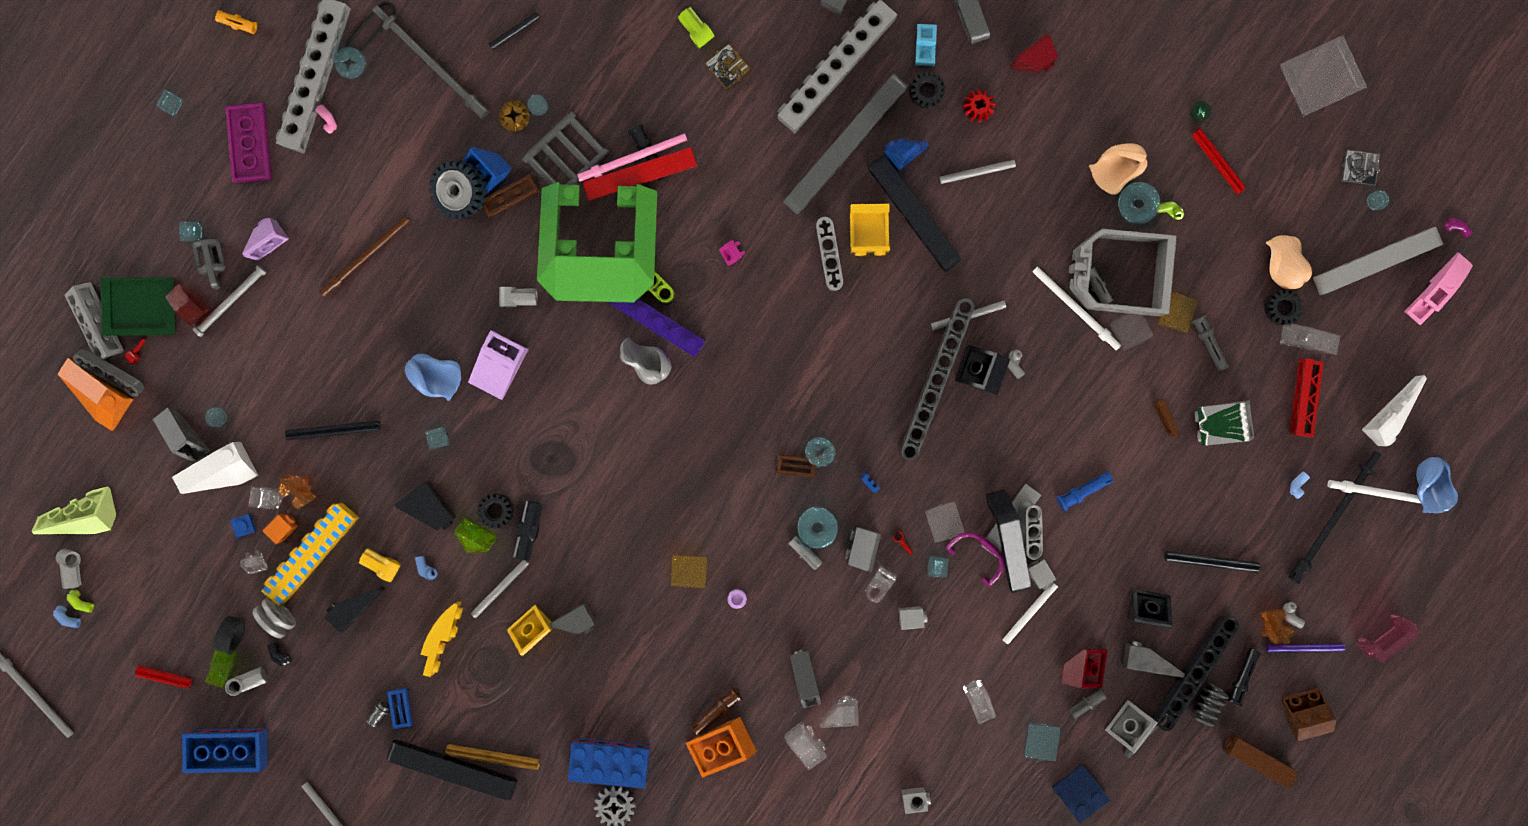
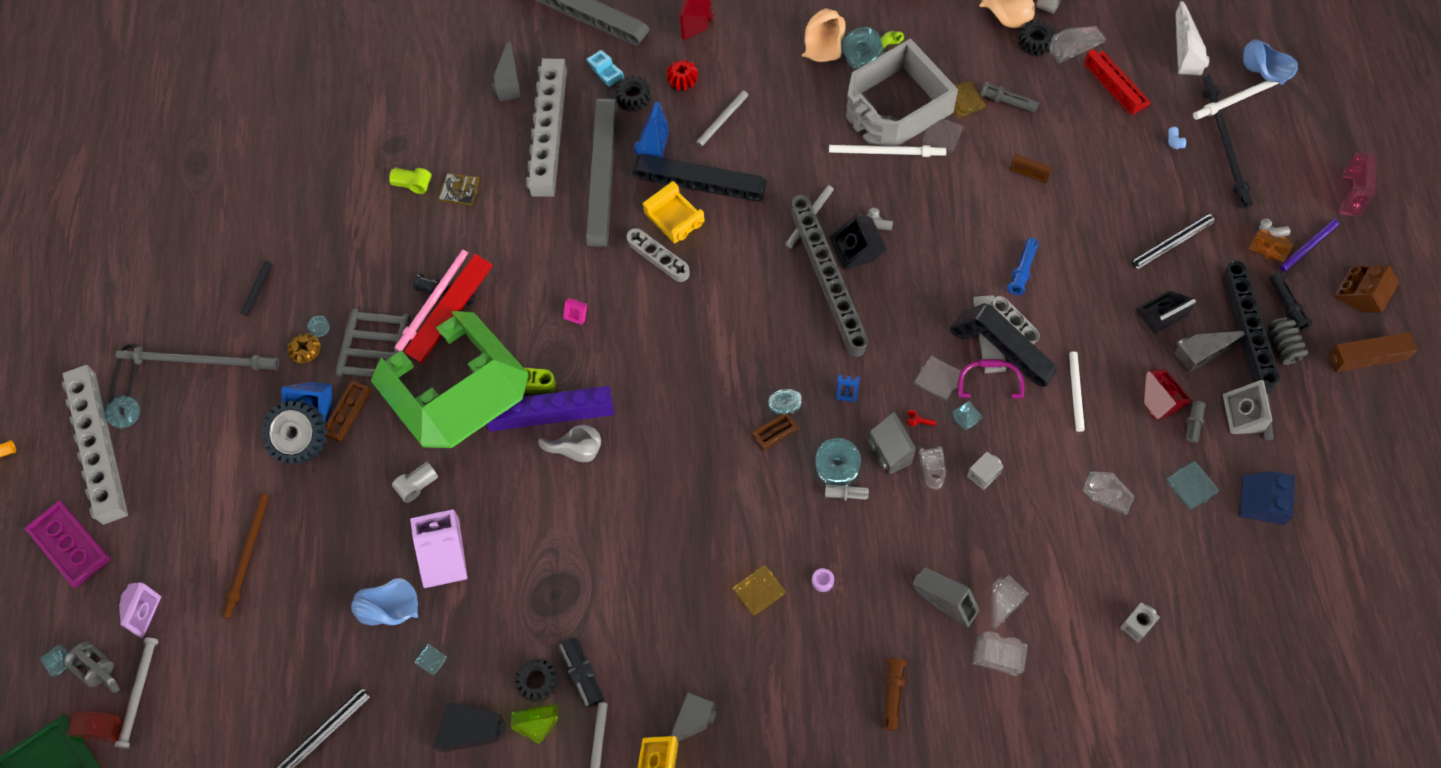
camera: 30 degrees left, 25 degrees down
(331, 125) = (130, 466): bright pink arm -> none
(721, 747) = (927, 723): orange slope -> none
(1041, 574) = (1056, 350): light grey brick -> none
(1224, 423) = (1077, 137): slope -> none

